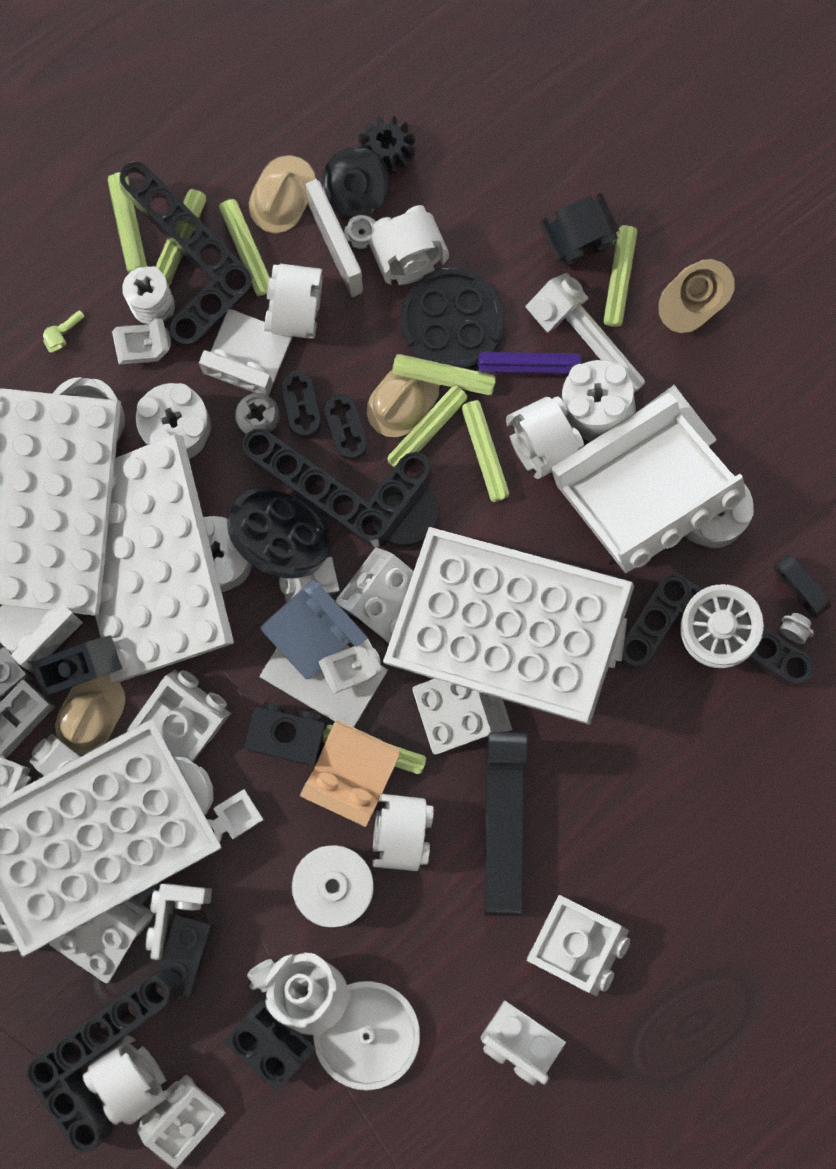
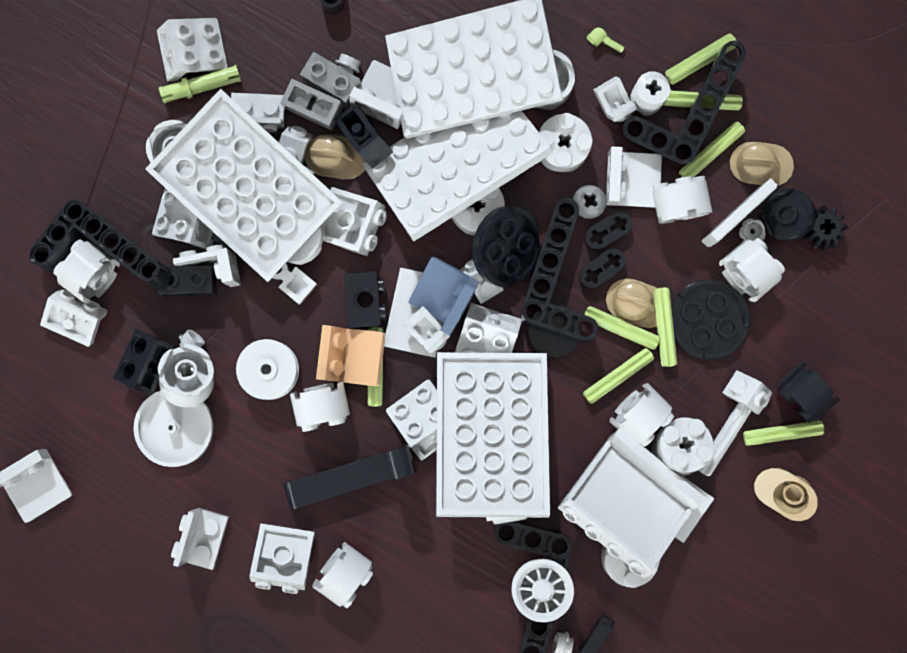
camera: 70 degrees right, 5 degrees up
(527, 362) = (694, 386): dark purple axle -> none
(626, 872) = (343, 575): none -> white brick

